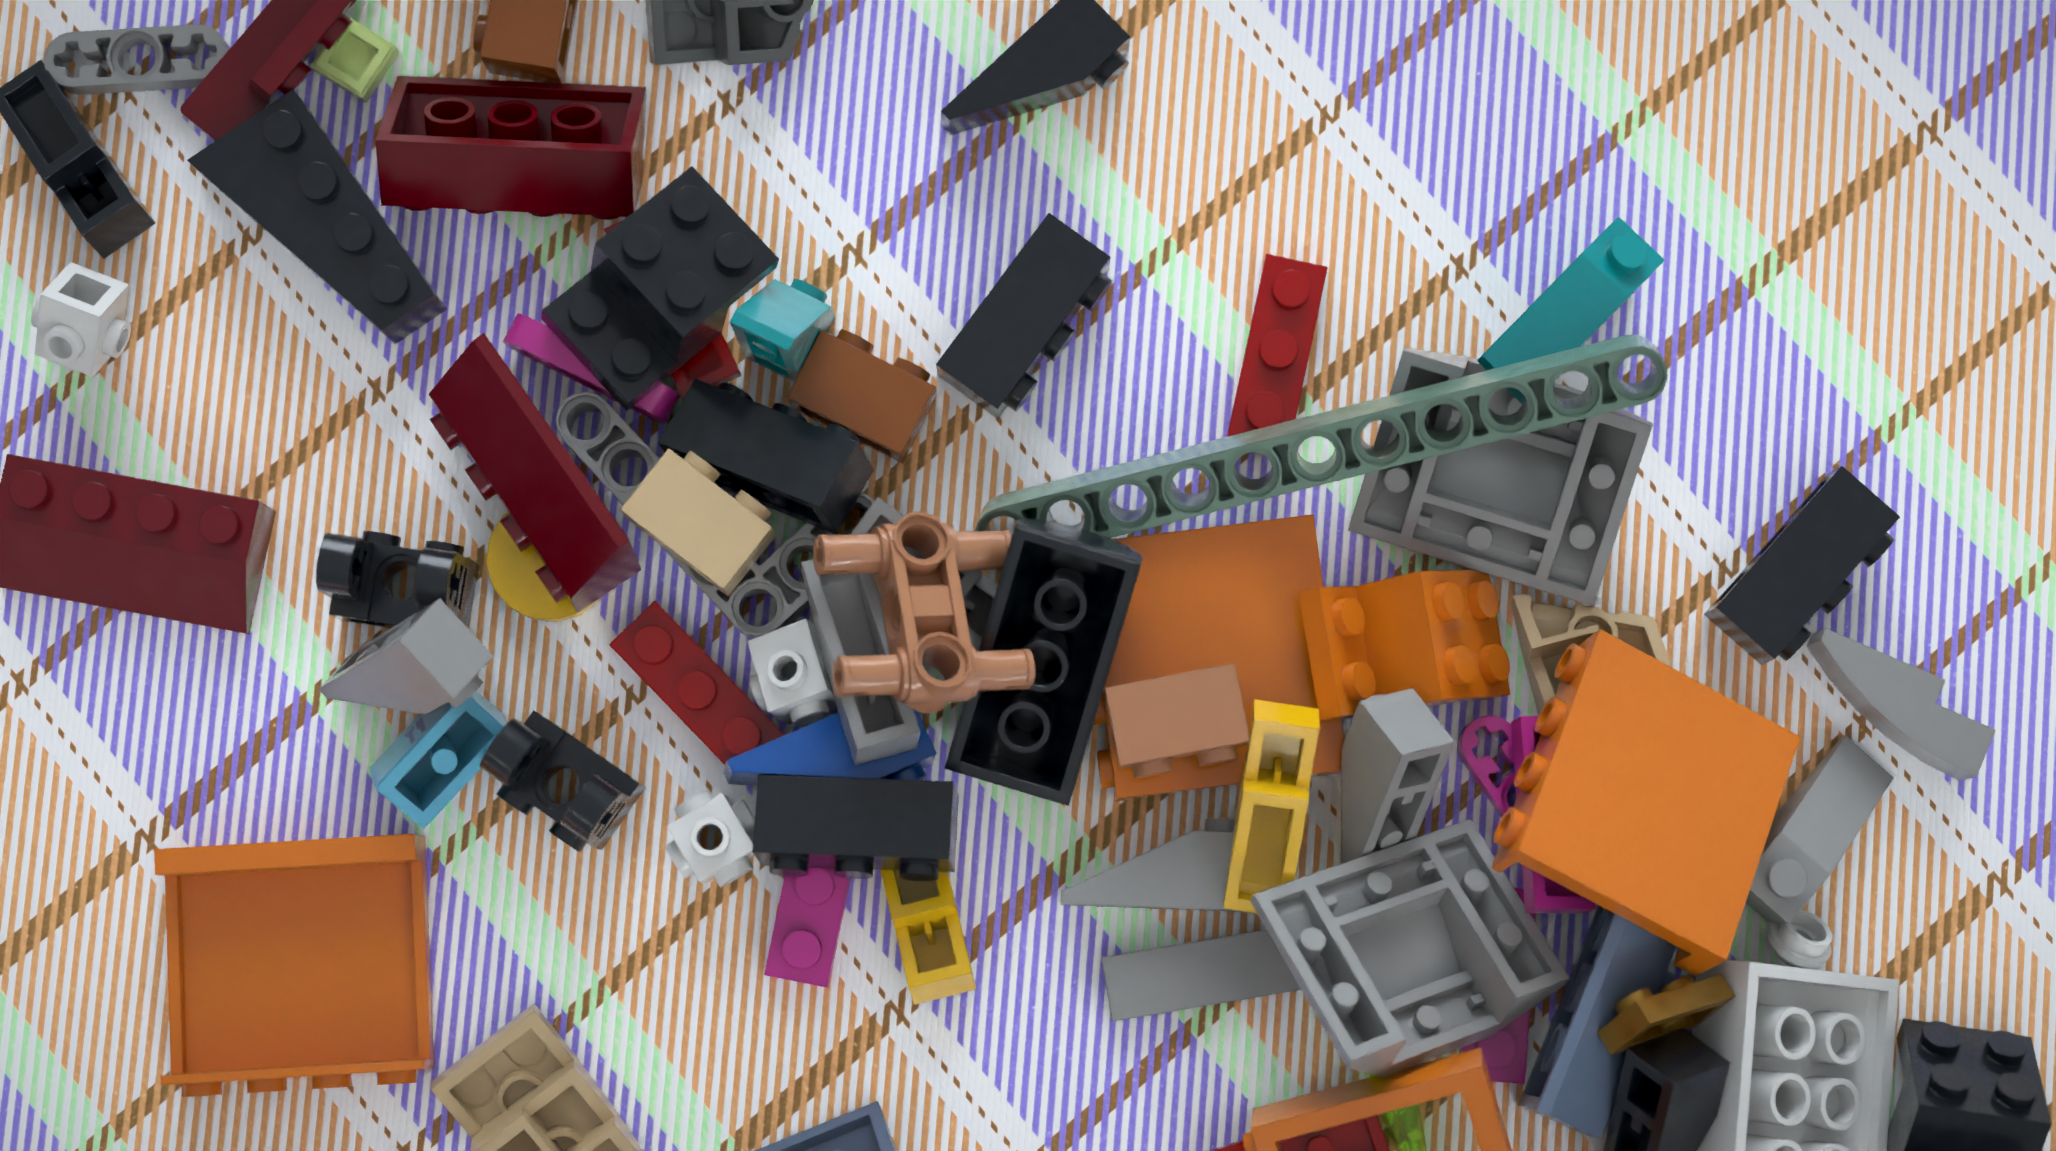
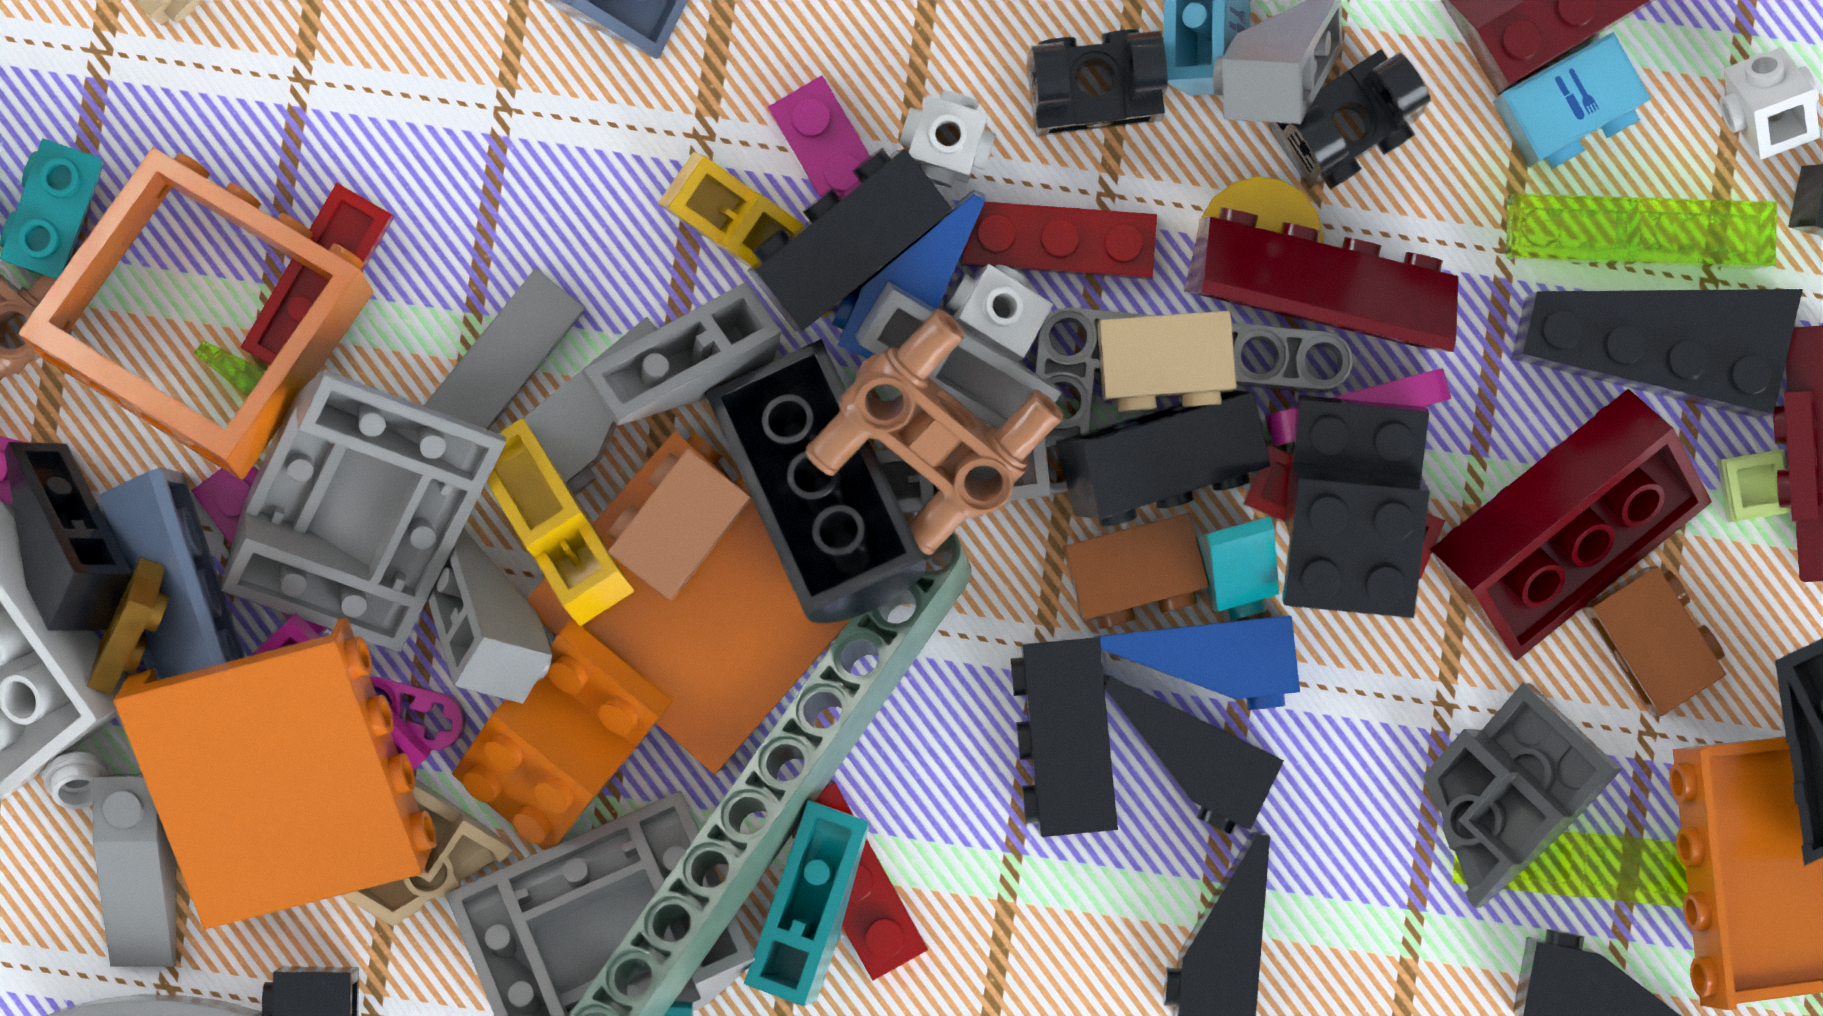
camera: 135 degrees right, 5 degrees up
(224, 451) = (1571, 101): none -> medium azure brick
(264, 313) = (1642, 231): none -> clear neon green slope
(851, 265) = (1230, 658): none -> blue slope
(938, 204) = (1205, 762): none -> black slope
(1059, 842) = (686, 357): none -> light grey slope
(1327, 356) = (809, 905): none -> teal slope

